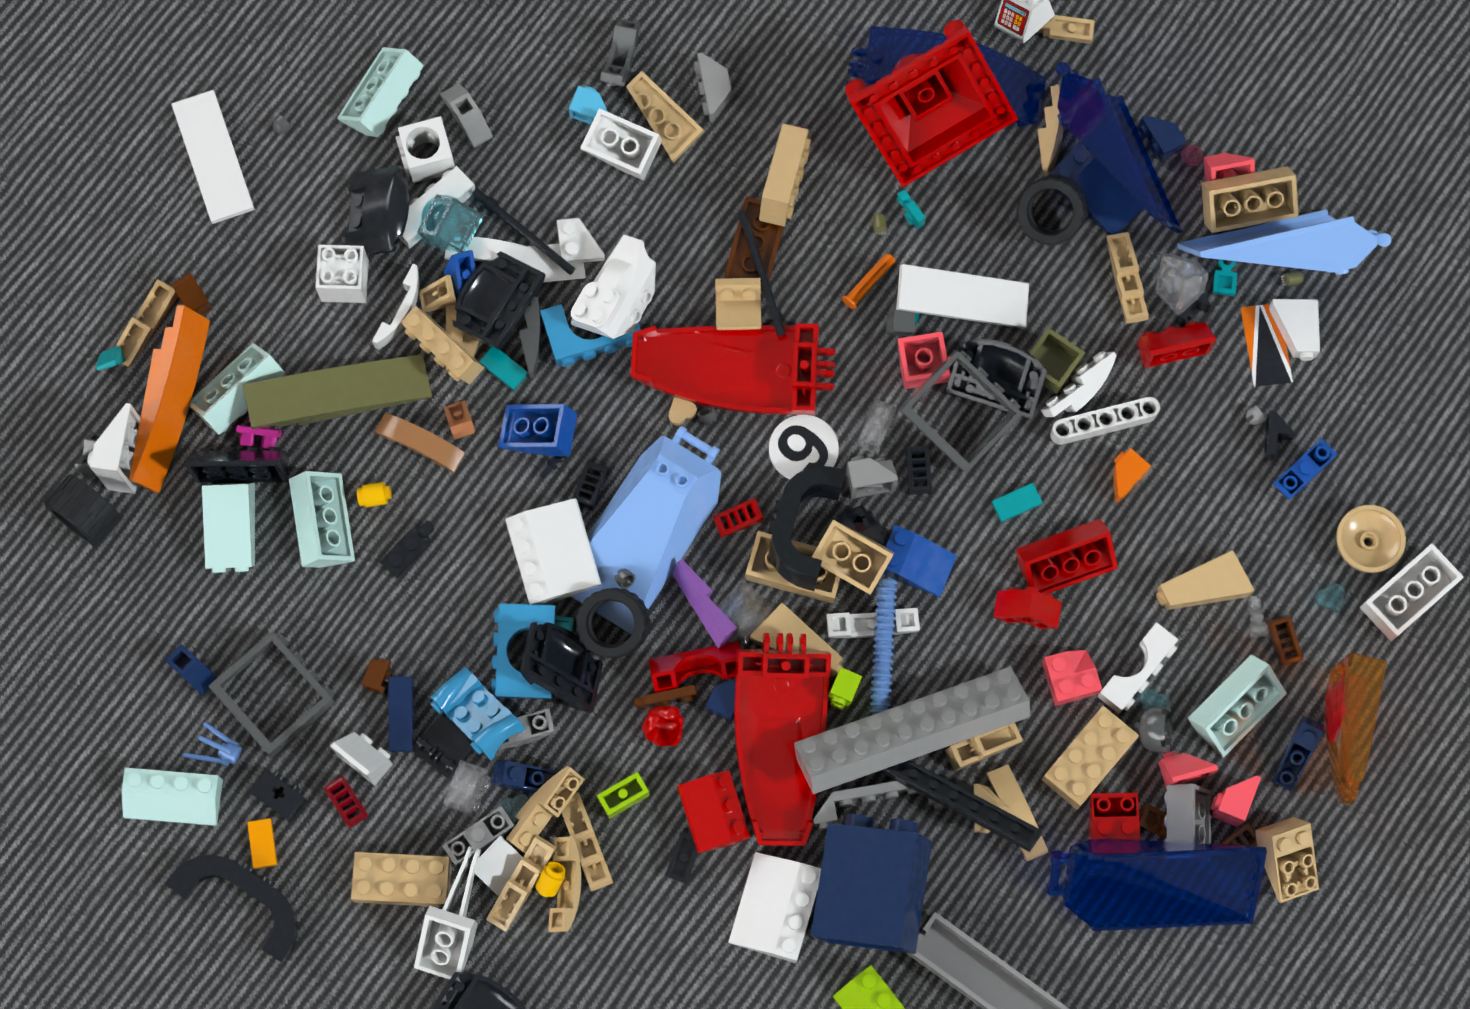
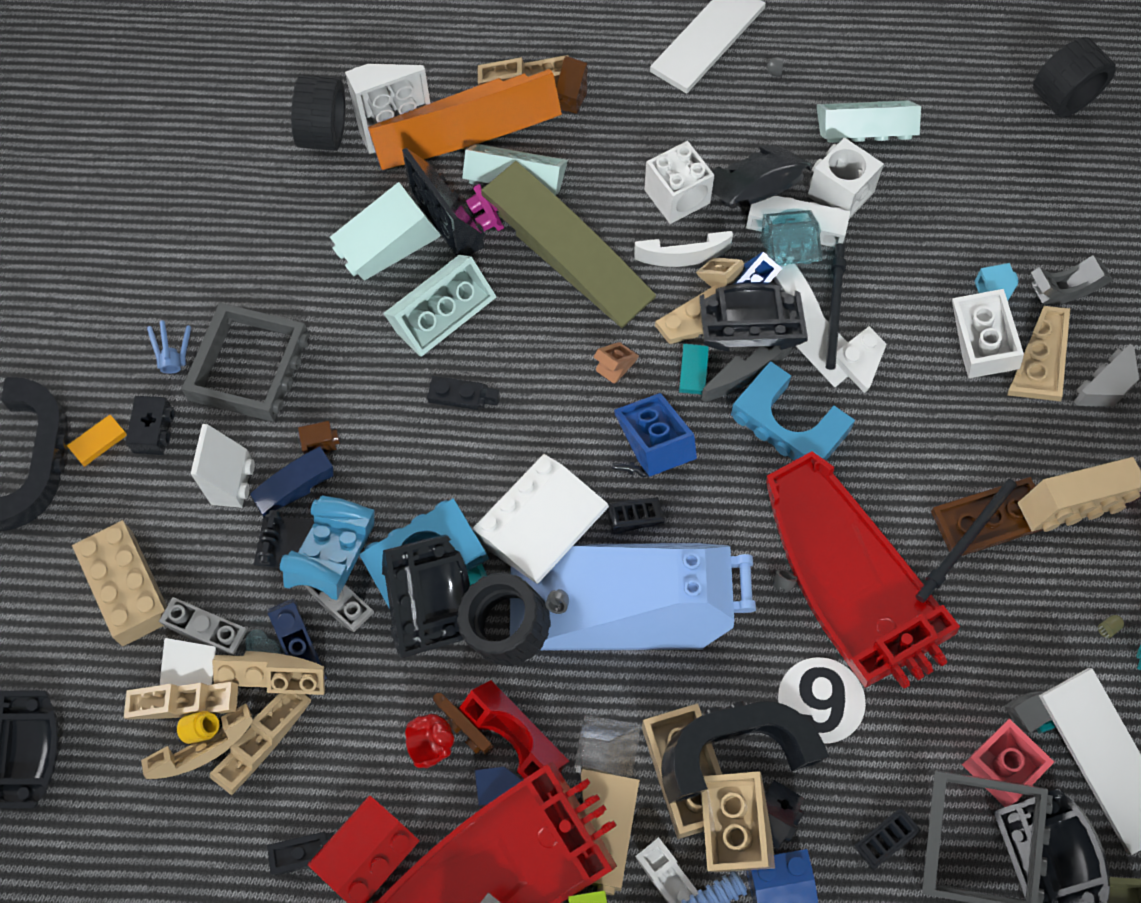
camera: 60 degrees right, 10 degrees down
(110, 358) = (473, 65): teal slope -> none
(171, 796) = (100, 338): light aqua slope -> none
(191, 669) = (229, 279): dark blue slope -> none
(336, 784) = (171, 483): dark red slope -> none
(373, 494) = (493, 332): yellow brick -> none
(420, 441) = (571, 343): medium nougat slope -> none
(442, 345) = (672, 300): tan brick -> none
(445, 935) = (81, 660): white slope -> none
(466, 788) = (251, 587): clear brick -> none
(467, 114) = (903, 196): light grey slope -> none
(619, 292) = (840, 417): white slope -> none
(623, 795) = (329, 745): lime brick -> none
(681, 411) = (770, 553): tan tile -> none
(698, 593) = (592, 688): medium lavender slope -> none
(735, 511) = (715, 676): red slope -> none
(738, 303) = (919, 536): tan bracket -> none
(868, 281) = (1044, 652): orange axle -> none
(870, 477) = (840, 788): light grey slope -> none
(877, 427) = (899, 760): clear brick -> none

